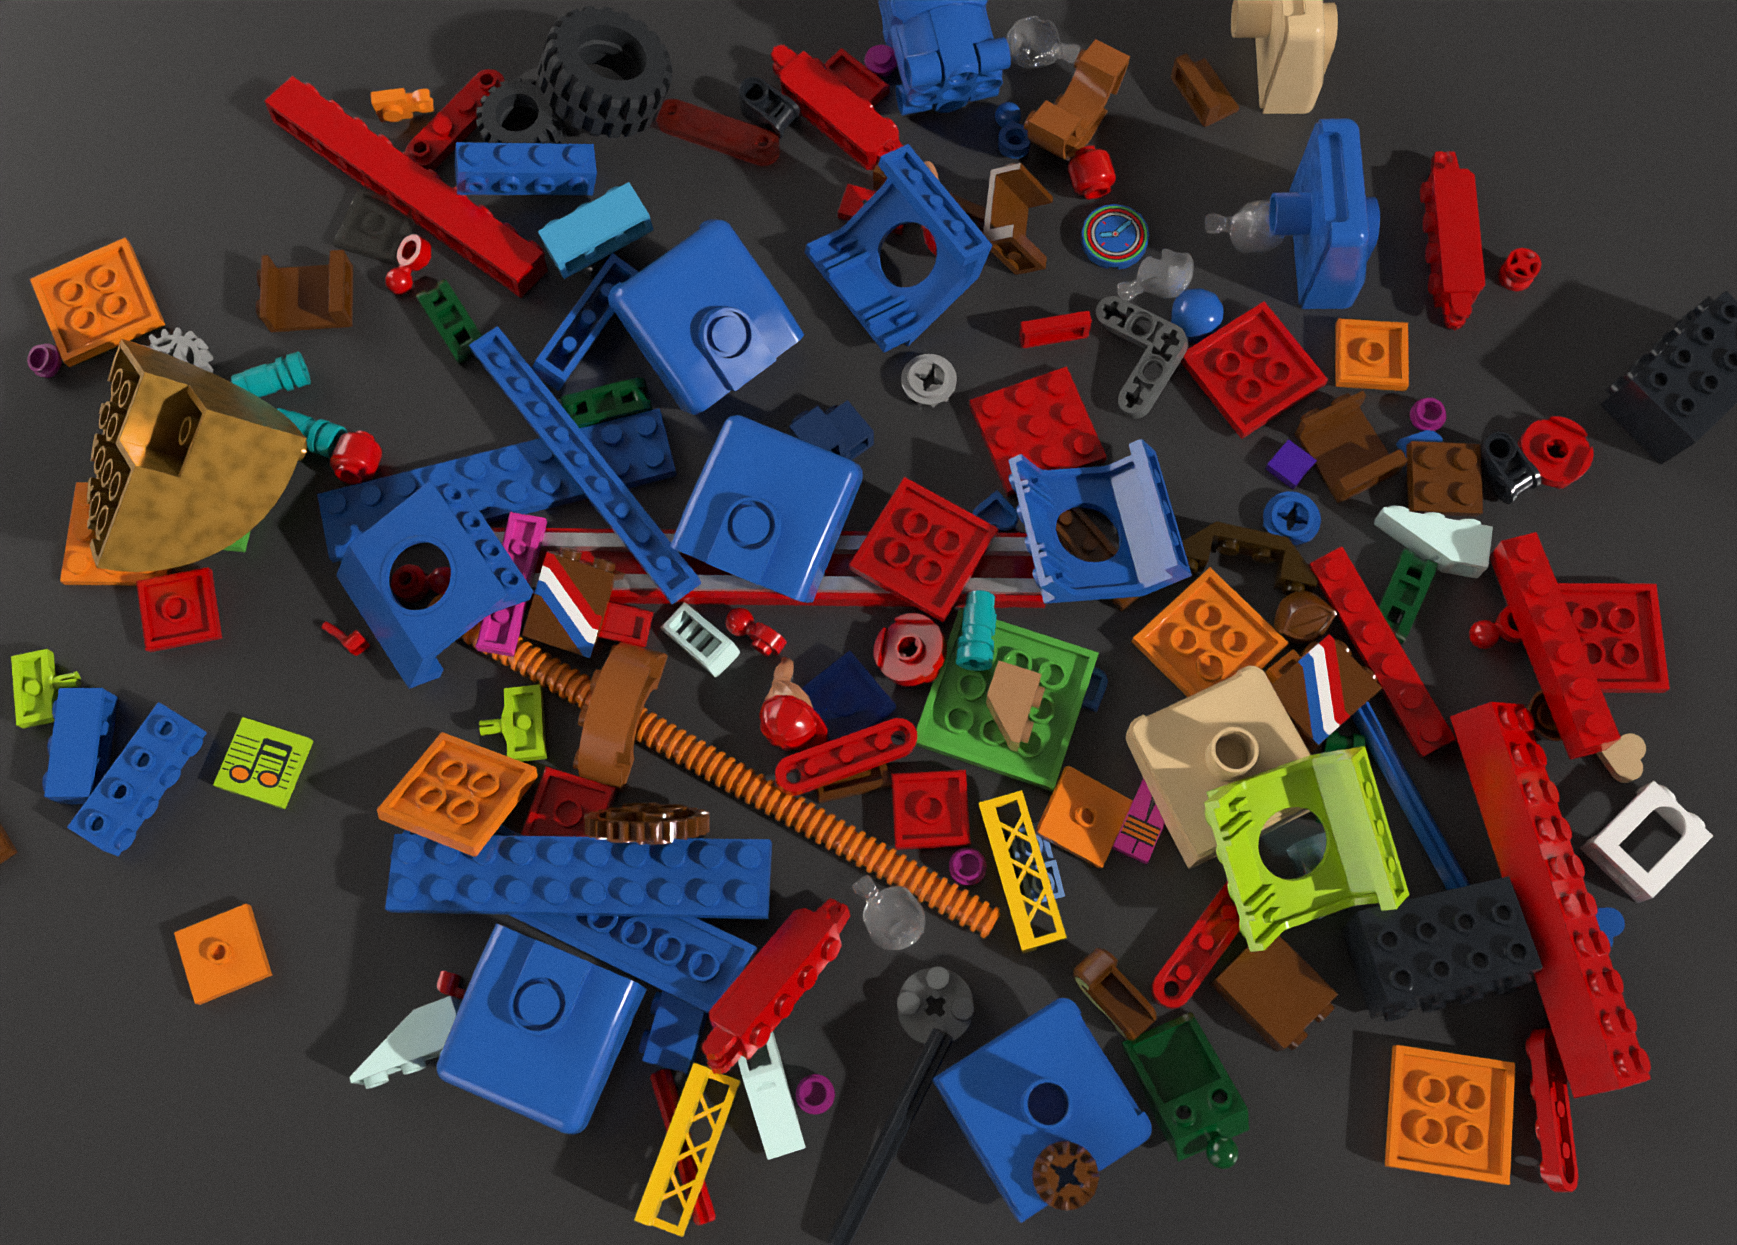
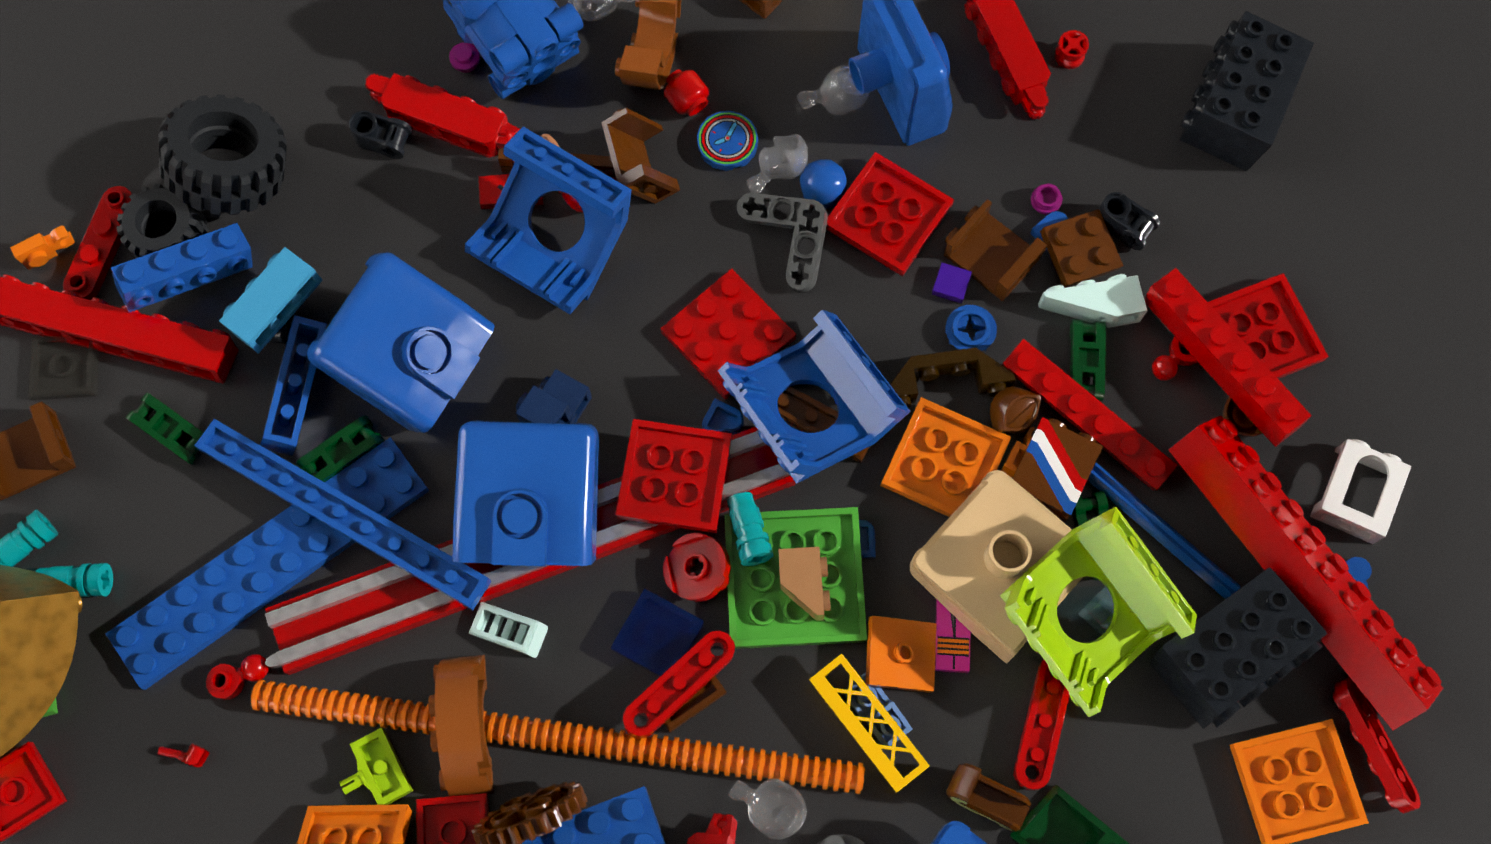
camera: 25 degrees left, 0 degrees up
(356, 457) = (128, 586): red head -> none
(412, 256) = (107, 381): red plate -> none
(479, 584) = (293, 661): blue panel -> none
(523, 543) = (320, 648): dark pink tile -> none
(571, 602) = (381, 642): panel -> none
(626, 624) = (425, 644): red tile -> none
(718, 132) = (344, 170): clear red plate -> none
(765, 639) = (567, 608): red plate -> none
(788, 714) = (614, 666): red piece -> none
(858, 77) = (451, 79): red tile -> none
(922, 367) = (607, 315): light grey gear -> none
(930, 809) = (769, 700): red plate -> none
(967, 866) = (820, 737): magenta plate -> none
(1008, 118) = (595, 69): blue plate -> none
(1055, 329) = (709, 240): red tile -> none
(1275, 993) = (1119, 741): reddish brown brick -> none
(1371, 354) = (981, 164): orange plate -> none
(1573, 446) = (1173, 182): red plate -> none
(1624, 758) = (1316, 429): tan tile -> none

